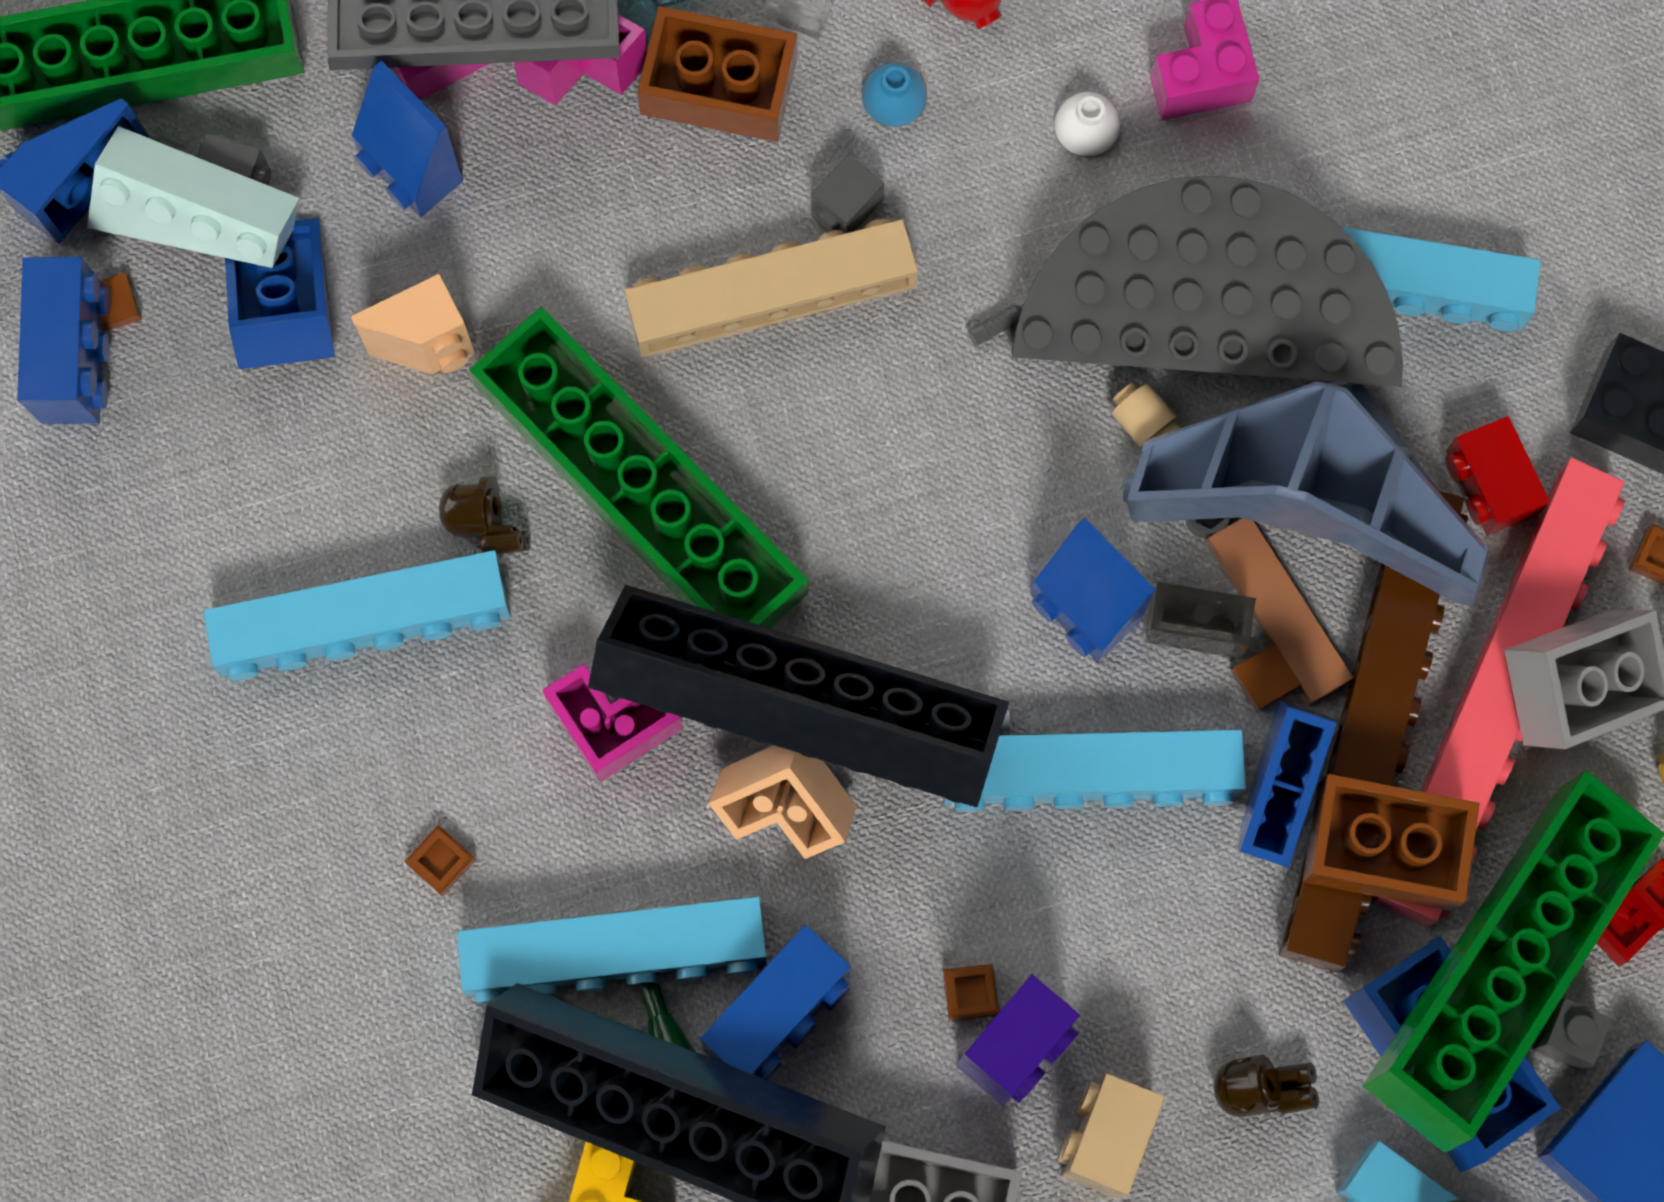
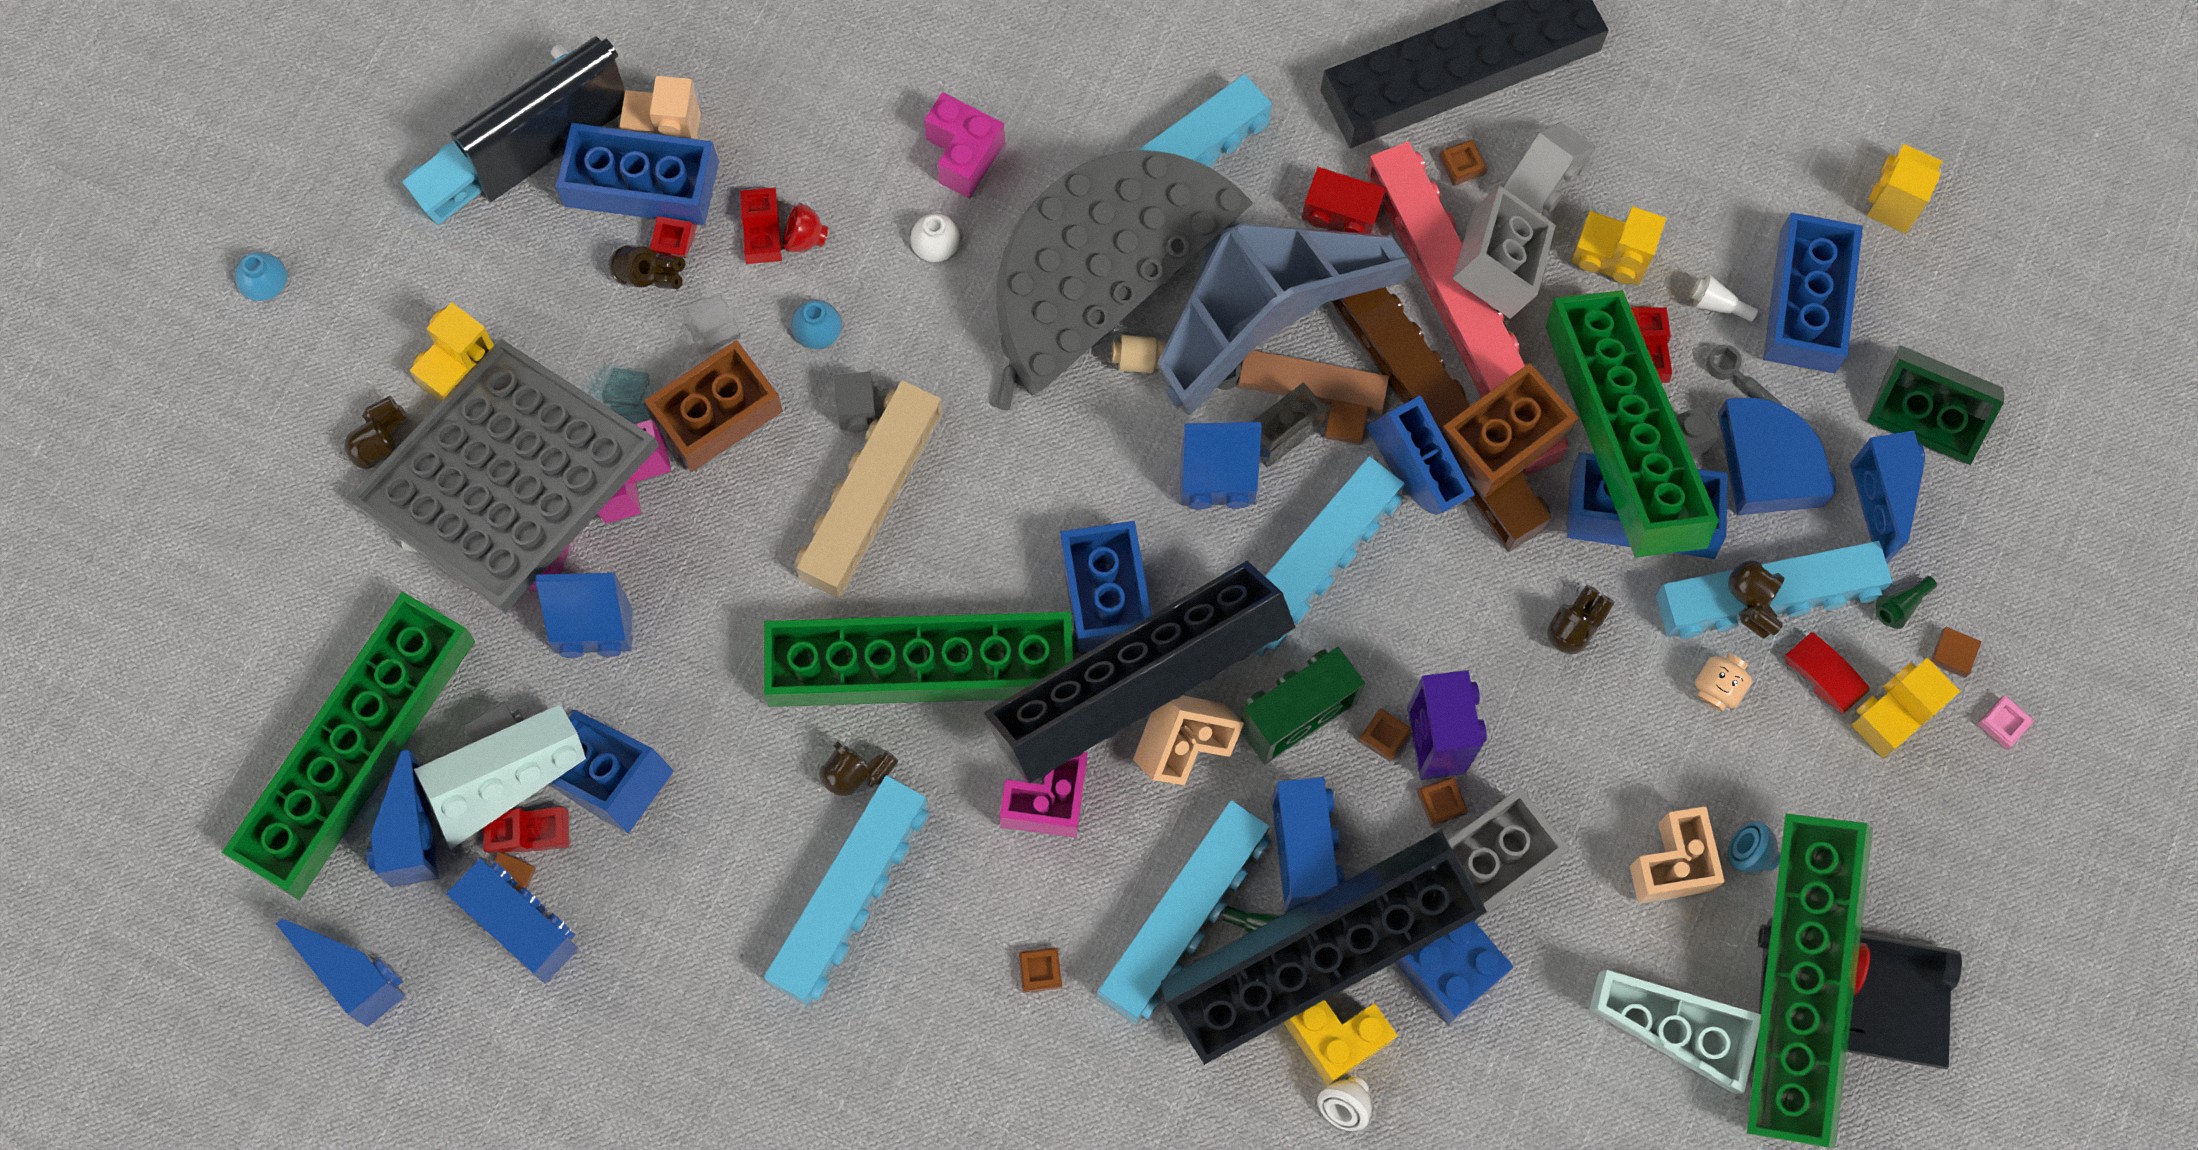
camera: 50 degrees left, 5 degrees down
(167, 280) = (528, 831): none -> red slope
(417, 329) = (709, 704): light nougat slope -> none
(872, 586) = (1104, 581): none -> blue brick
(917, 880) = (1300, 704): none -> dark green brick
(952, 1107) = (1442, 801): none -> dark orange tile
(1111, 1135) = (1539, 723): tan brick -> none

